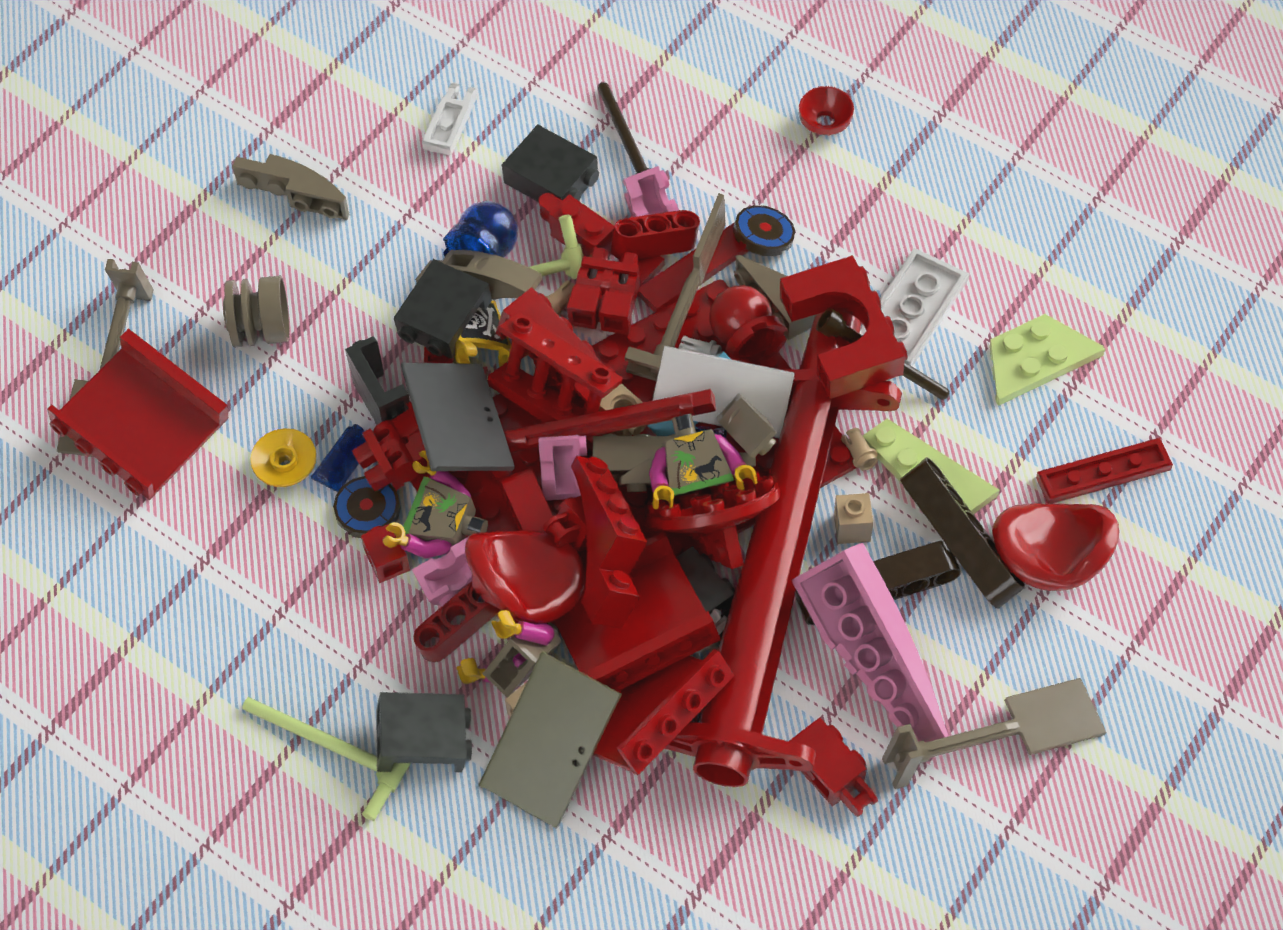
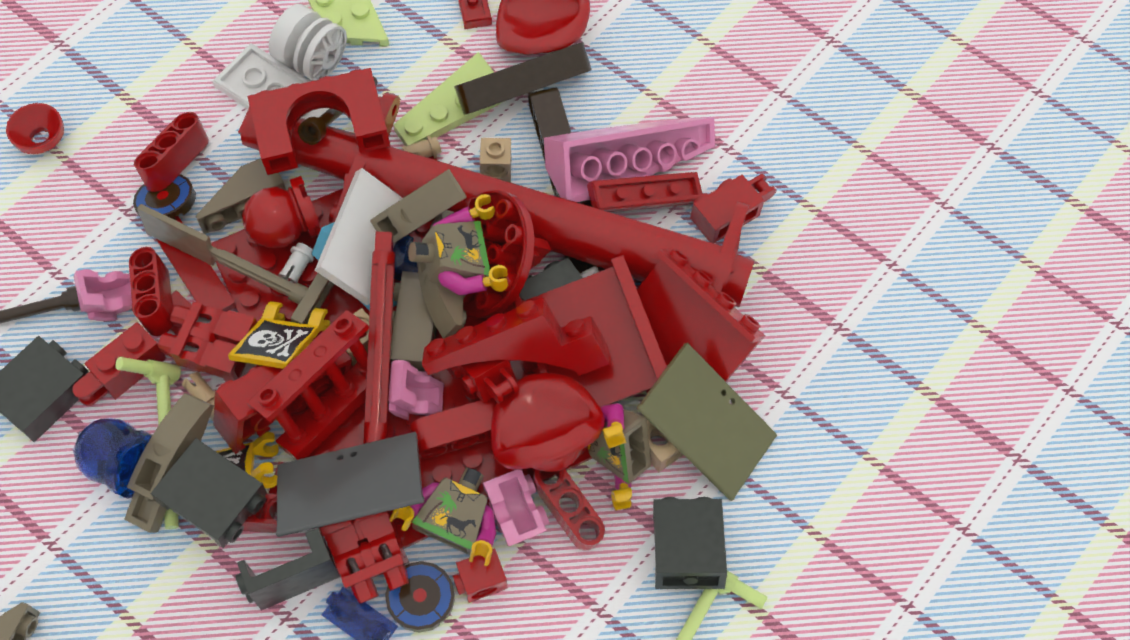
camera: 90 degrees left, 5 degrees up
(606, 339) = (277, 341): none -> flag
(814, 224) = (171, 151): none -> red beam
(828, 667) = (644, 192): none -> red tile
(967, 318) = (307, 42): none -> white wheel
(1042, 717) = (695, 51): dark tan piece -> none

